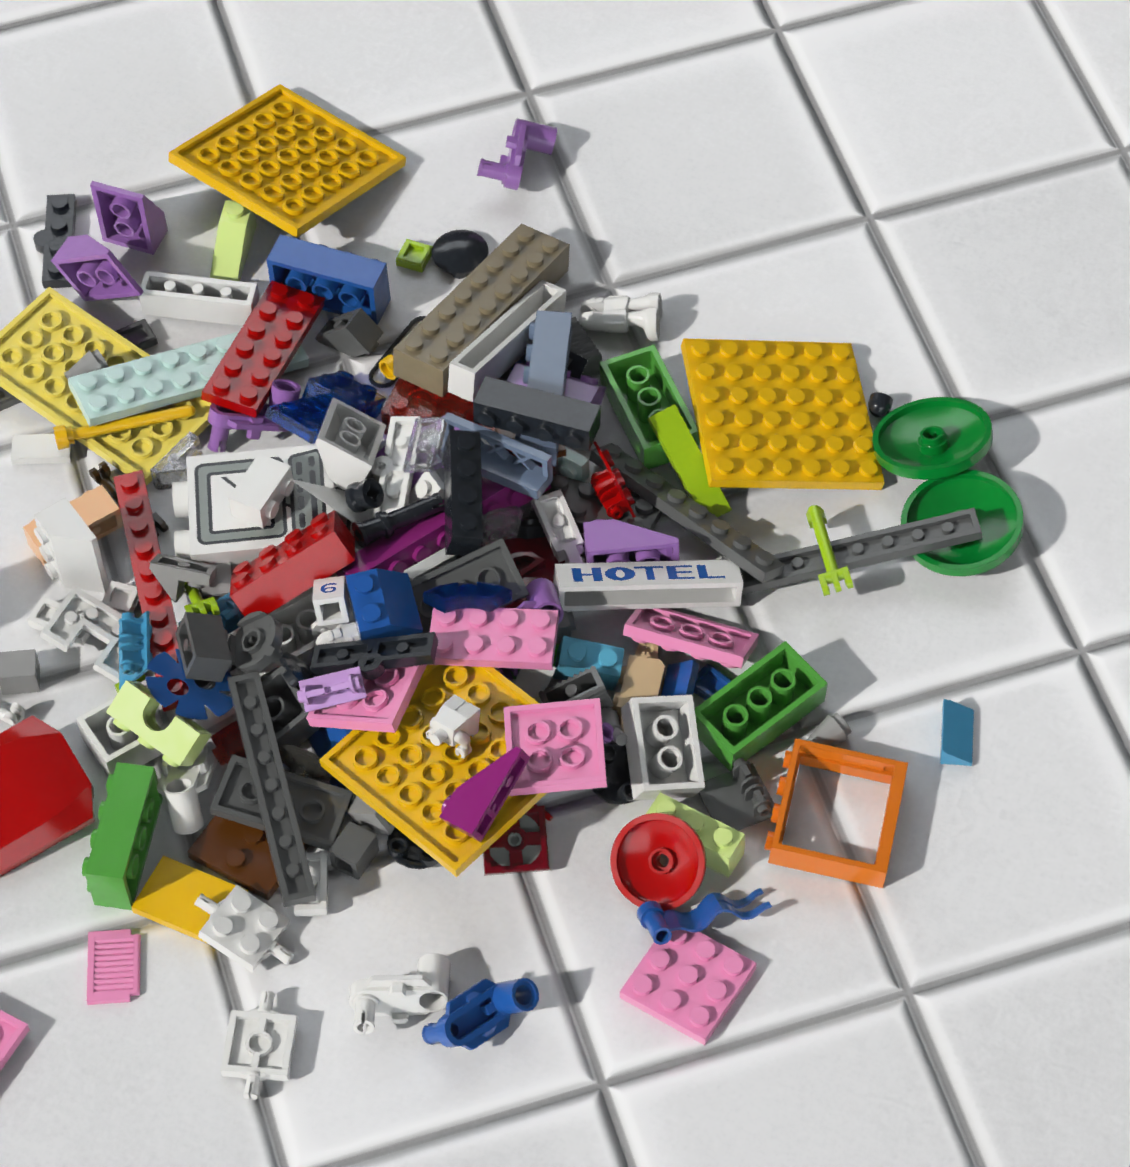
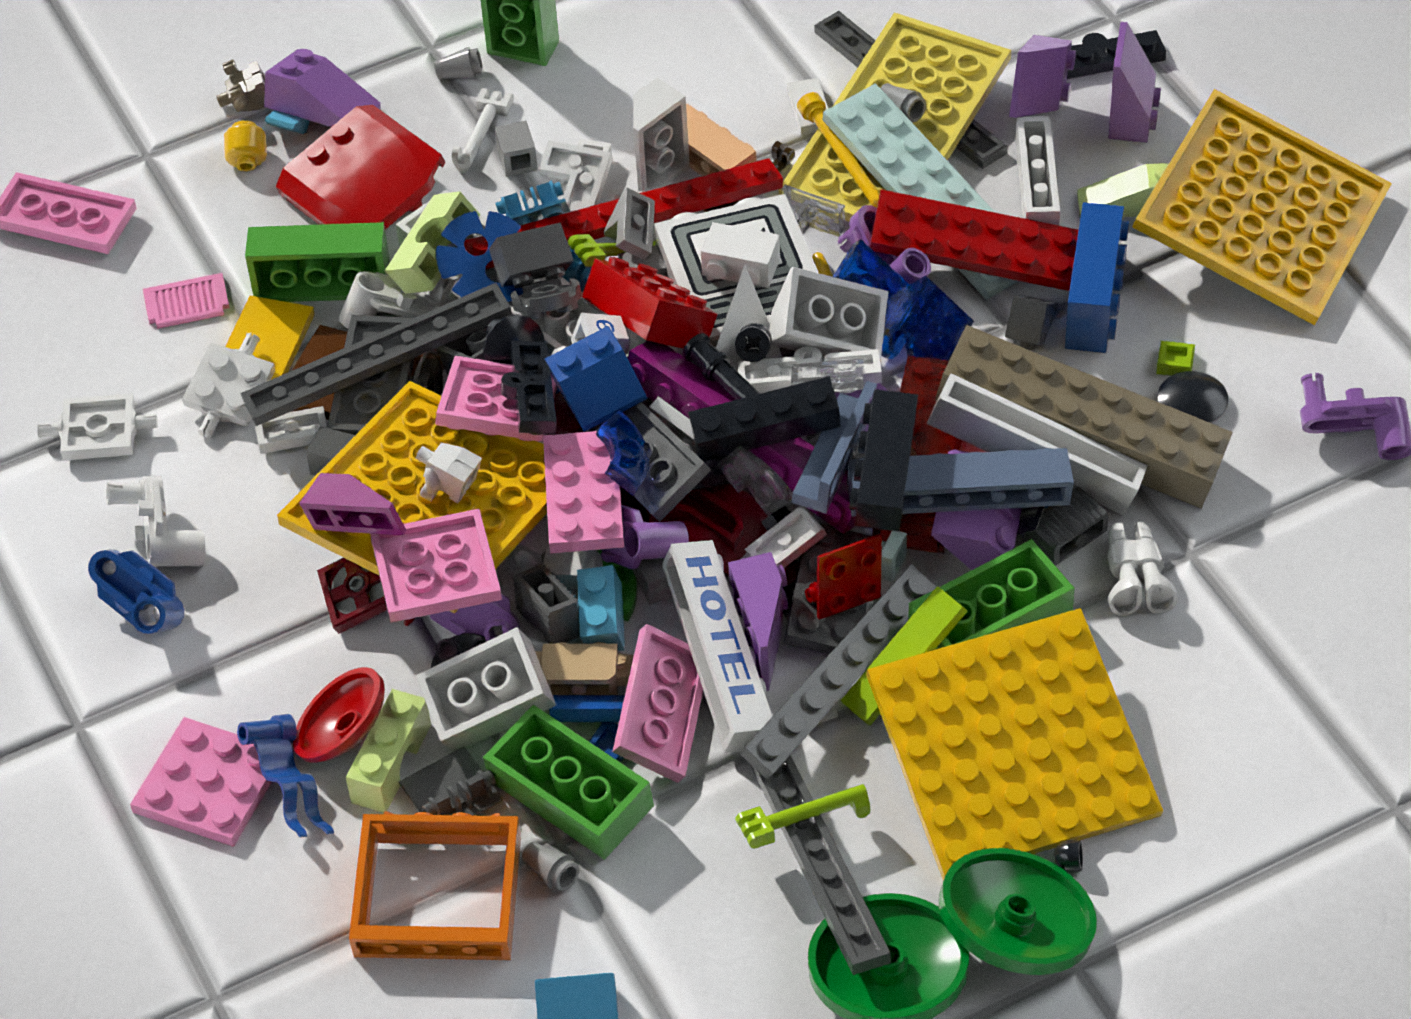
camera: 80 degrees right, 5 degrees down
(331, 689) = (480, 358): lavender hinge -> none

